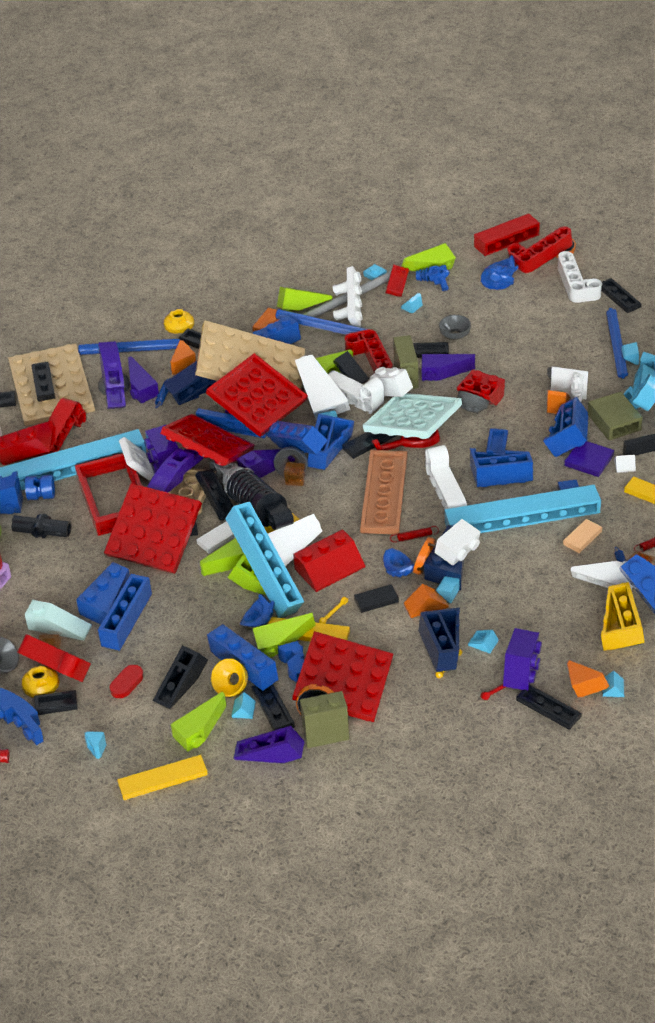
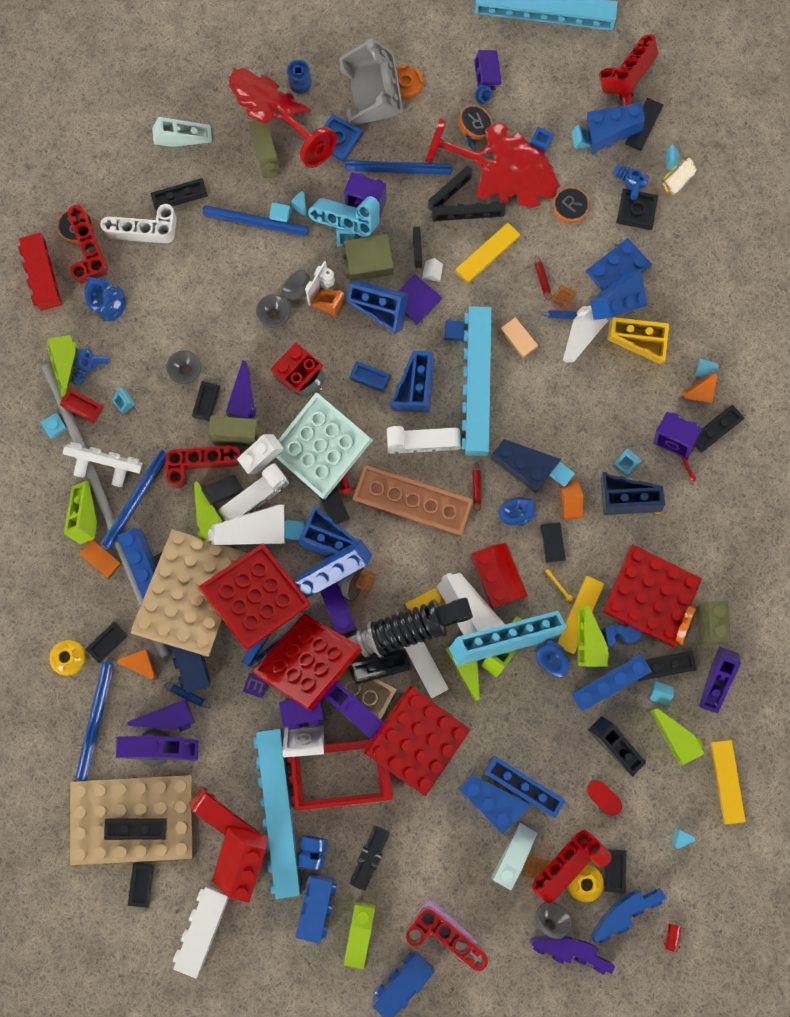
camera: 80 degrees left, 35 degrees up
(221, 677) = (637, 702): yellow piece -> none
(423, 555) = (522, 485): orange tile -> none
(457, 542) = (531, 450): white brick -> none
(531, 363) = (270, 303): none -> dark grey piece

